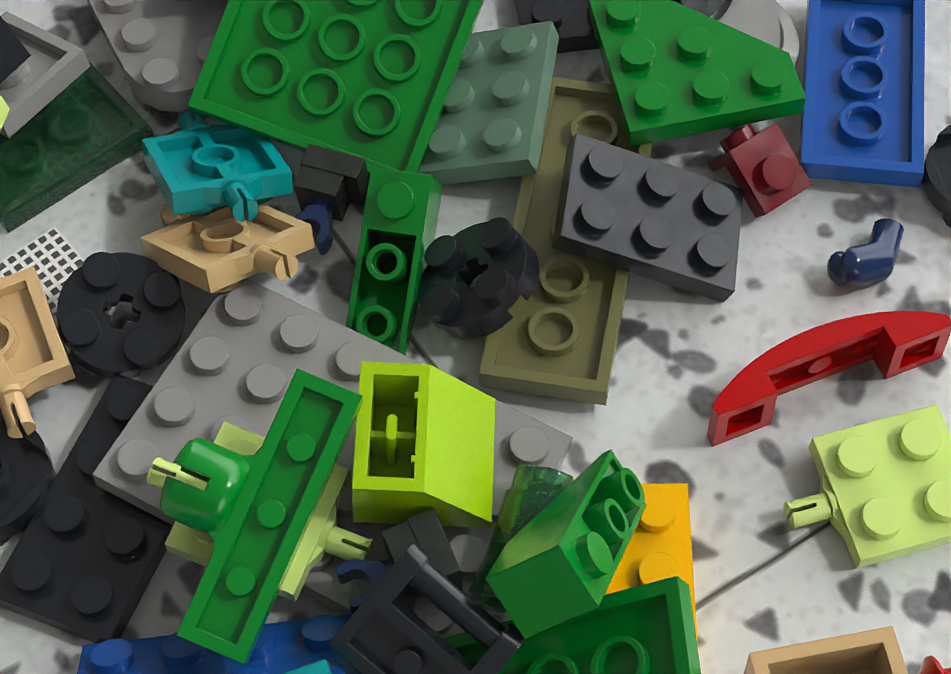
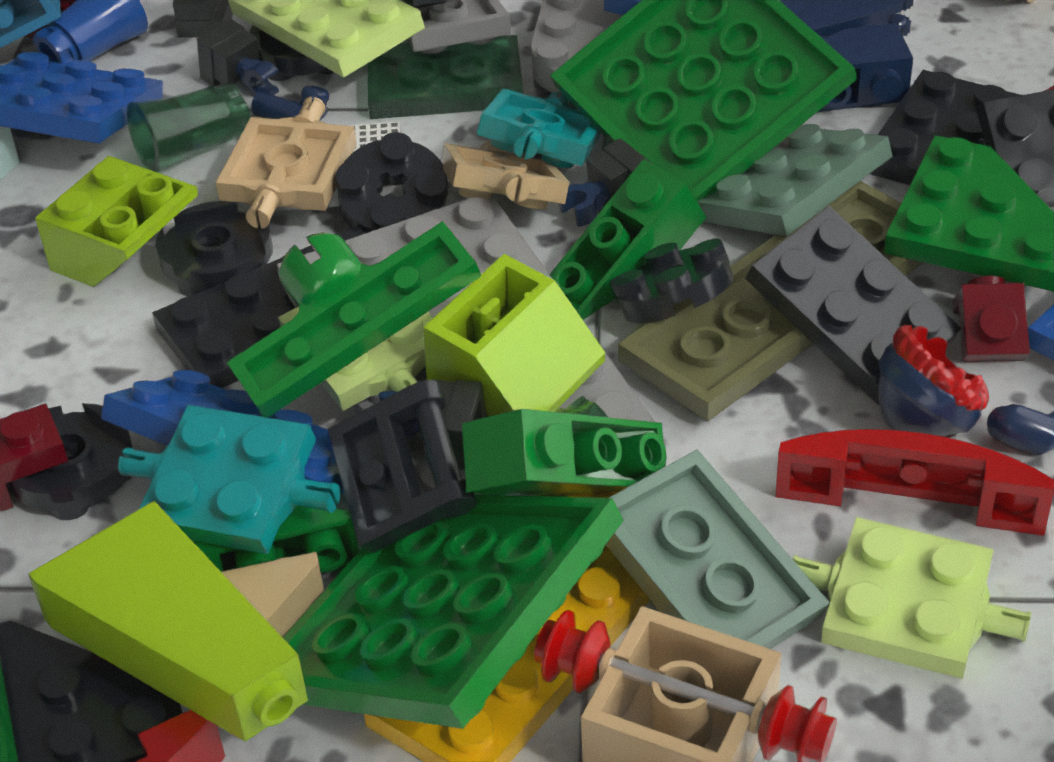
camera: 35 degrees right, 15 degrees down
(742, 556) = (710, 556): none -> sand green plate
(776, 275) = (925, 389): none -> hair

